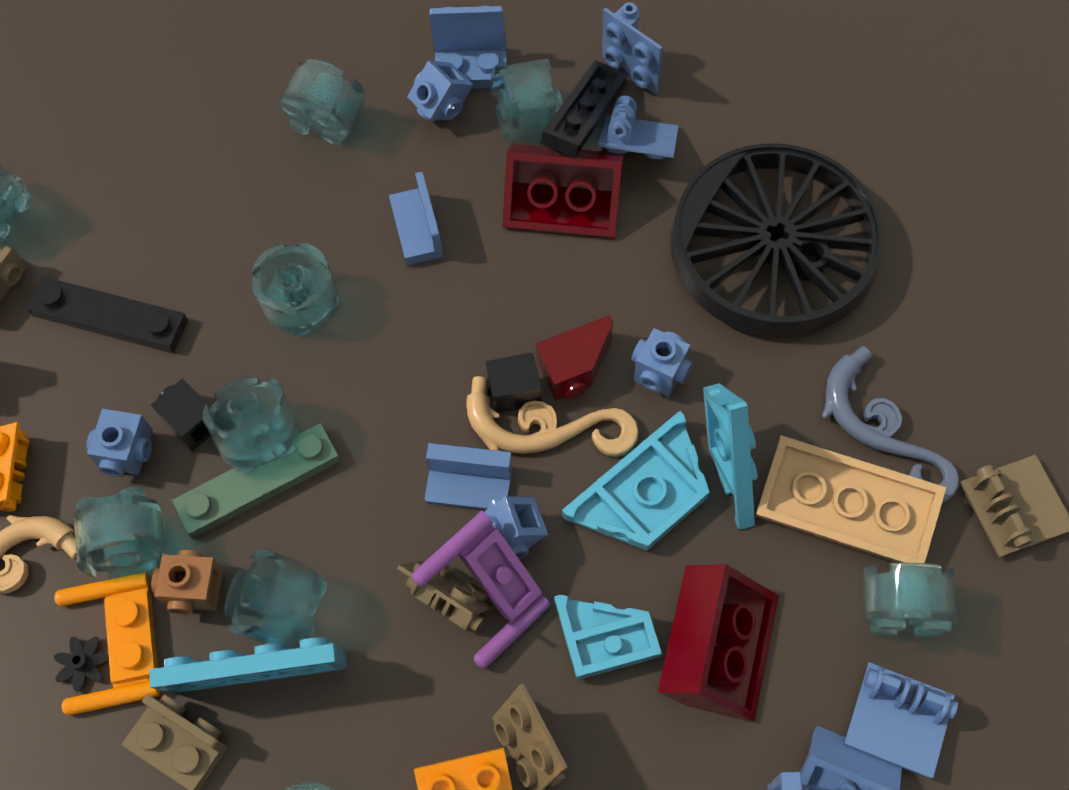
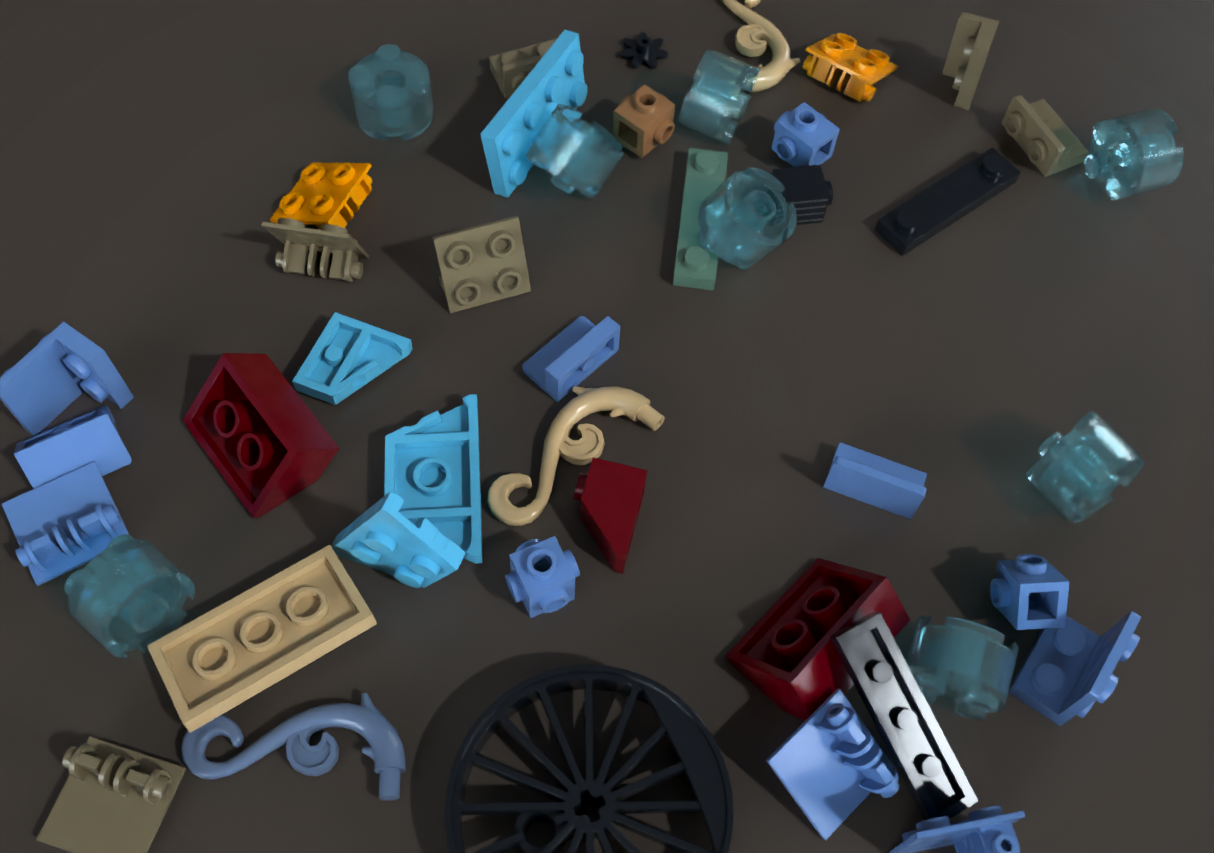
camera: 120 degrees right, 5 degrees down
(129, 640) = (624, 77): light orange plate -> none
(294, 287) = (866, 327): clear light blue brick -> none
(498, 574) = (460, 296): medium lavender plate -> none
(513, 382) = (631, 434): black panel -> none
(518, 522) = (484, 350): medium blue brick -> none

